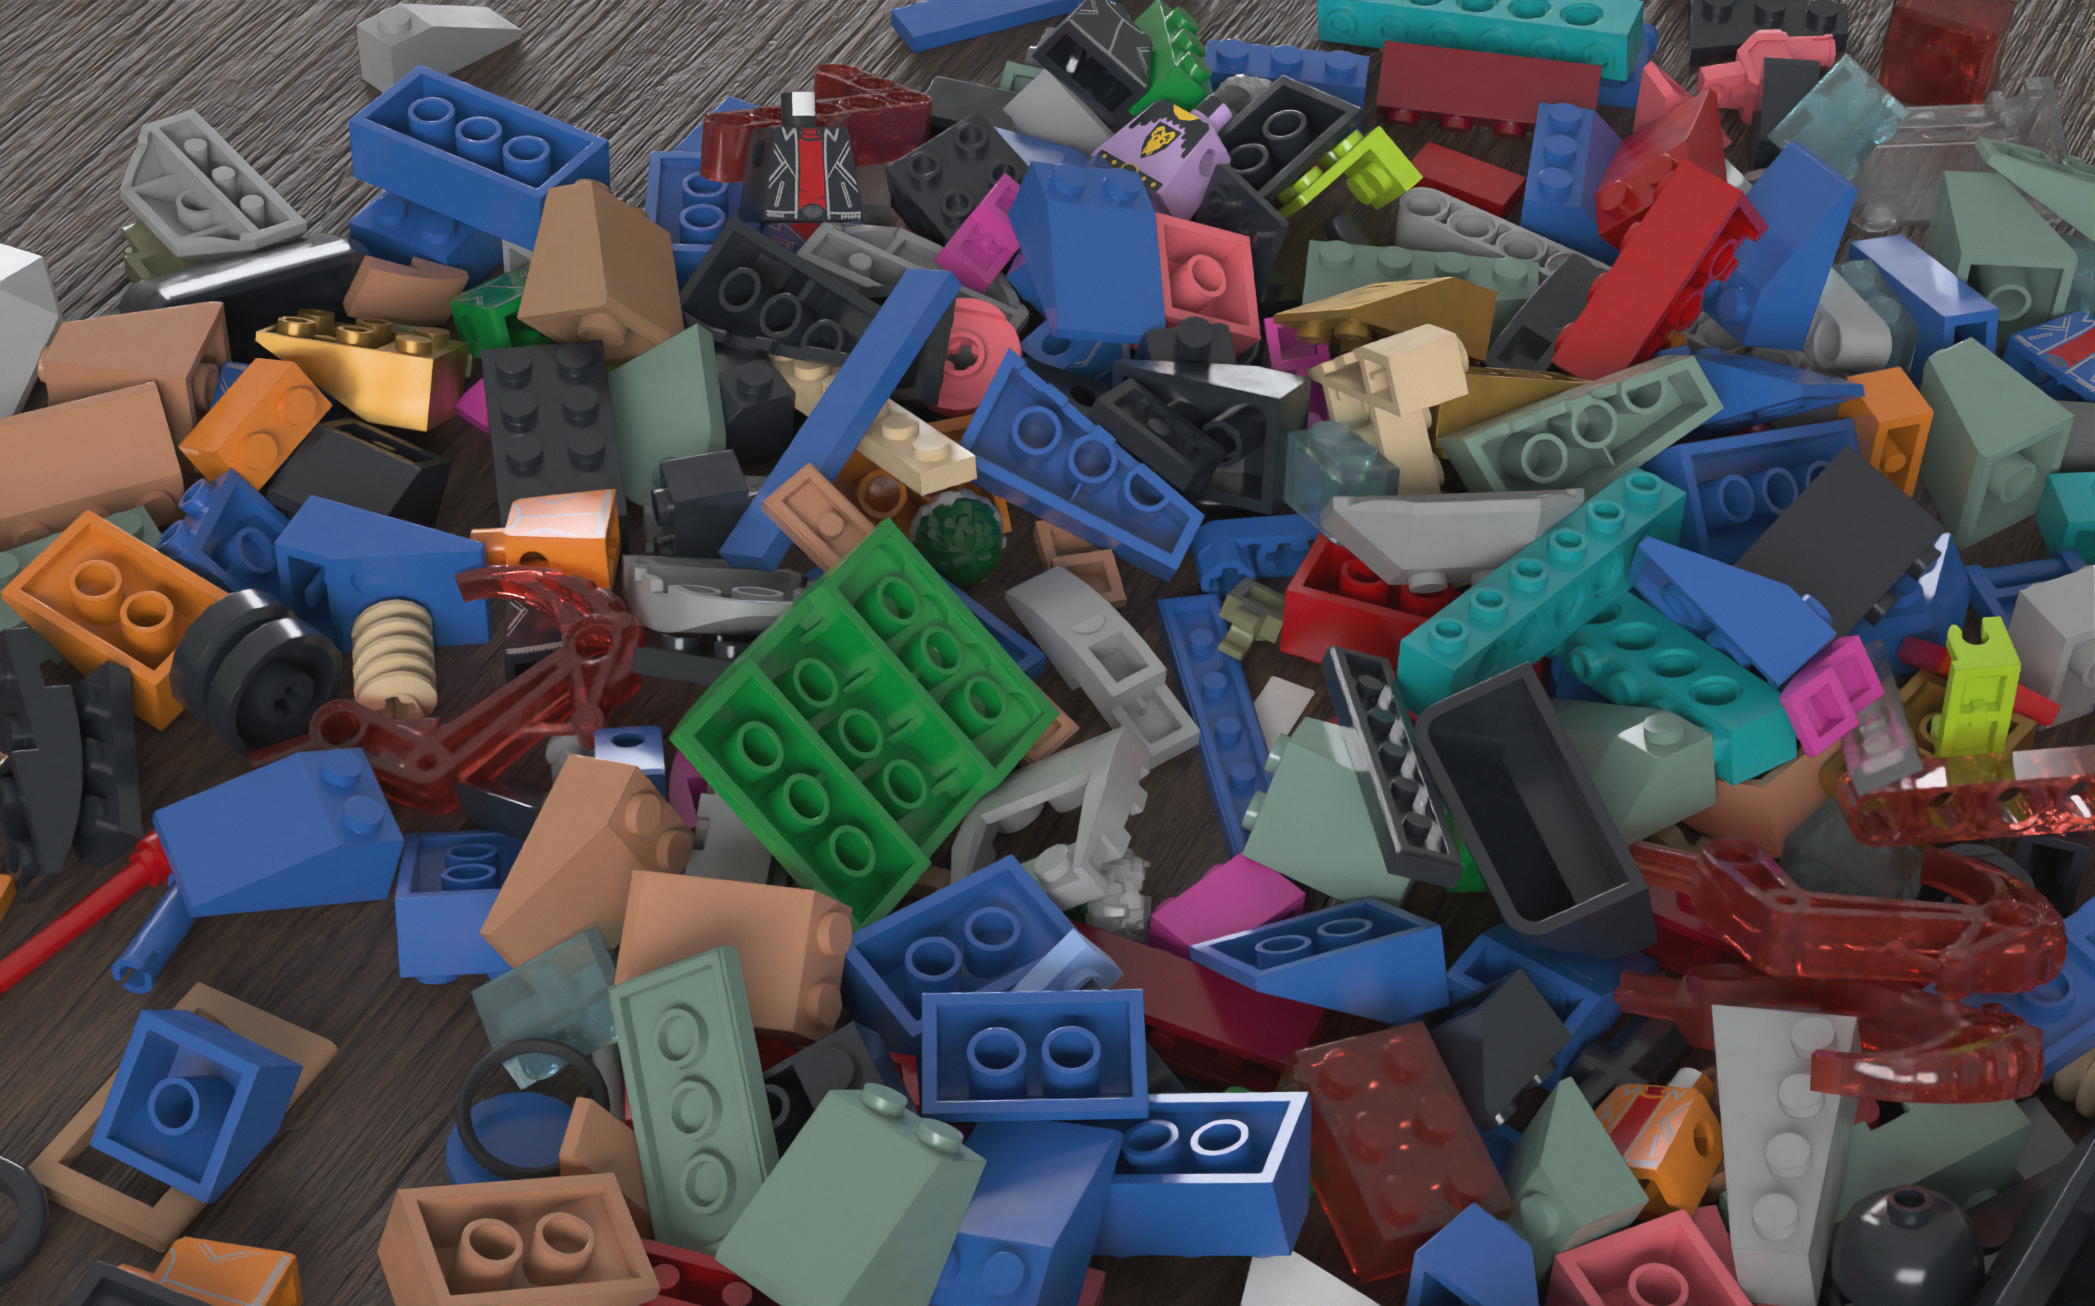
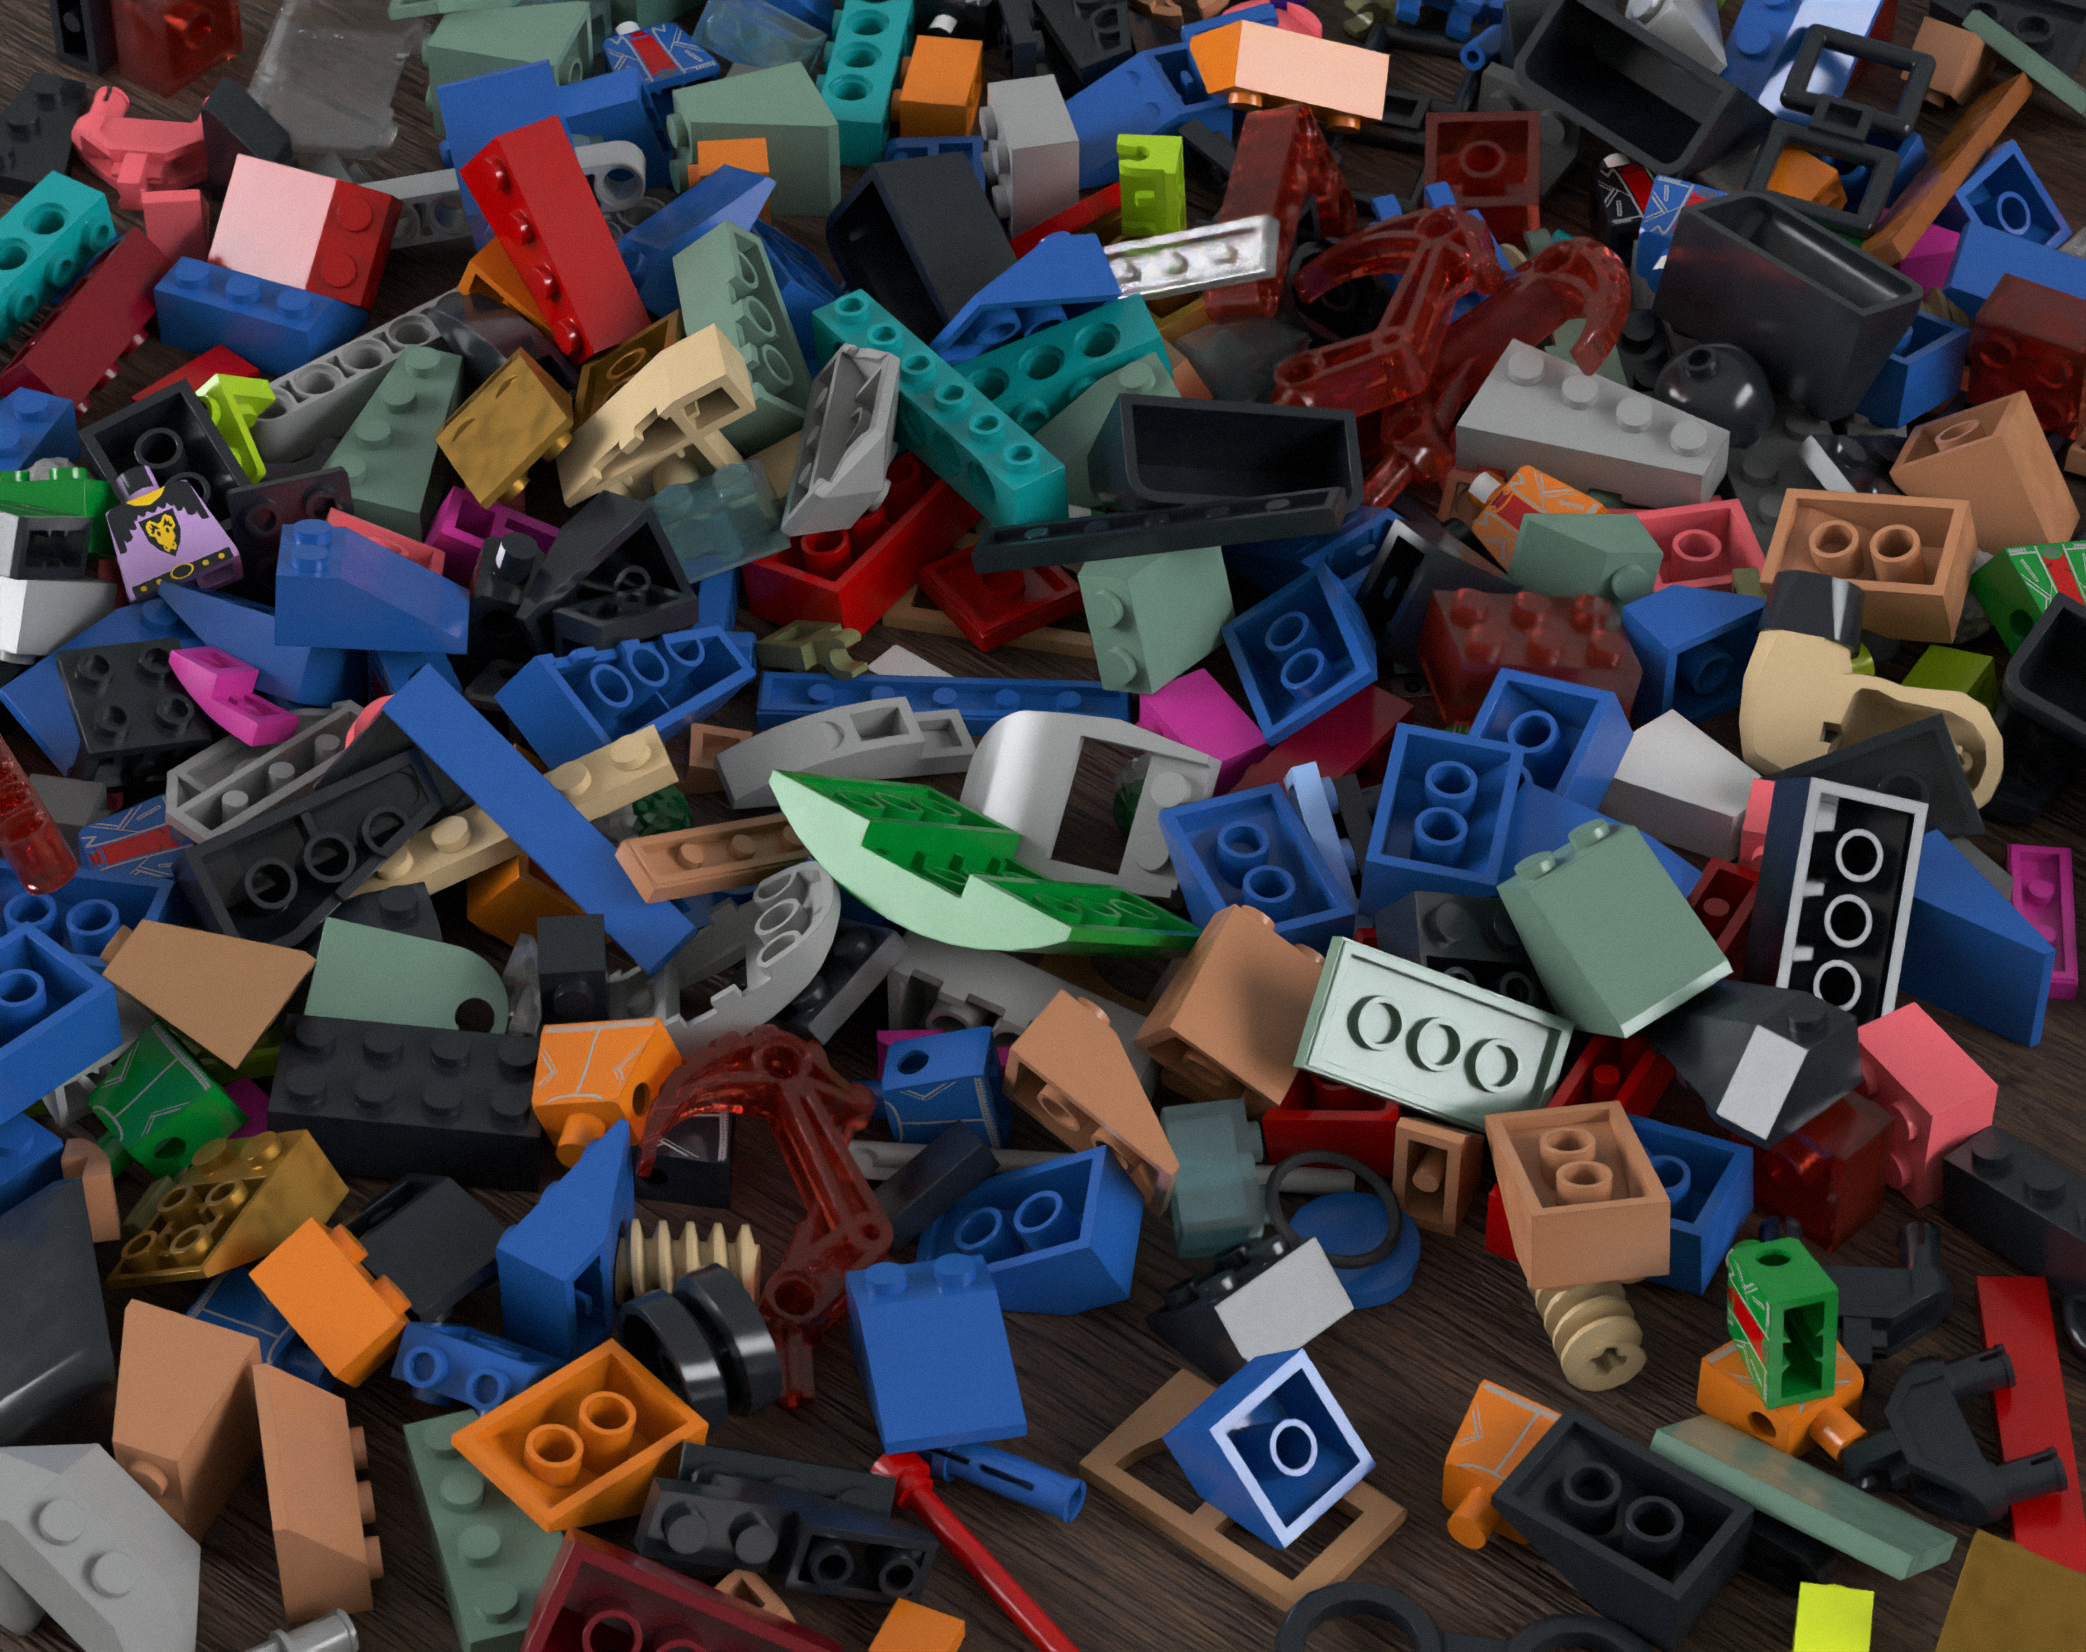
camera: 75 degrees left, 0 degrees up
(395, 1070) = (1251, 1304): none -> slope
(800, 170) = (104, 801): black torso -> none
(1830, 694) = (1144, 275): dark pink slope -> none
(1842, 118) = (323, 91): clear light blue brick -> none

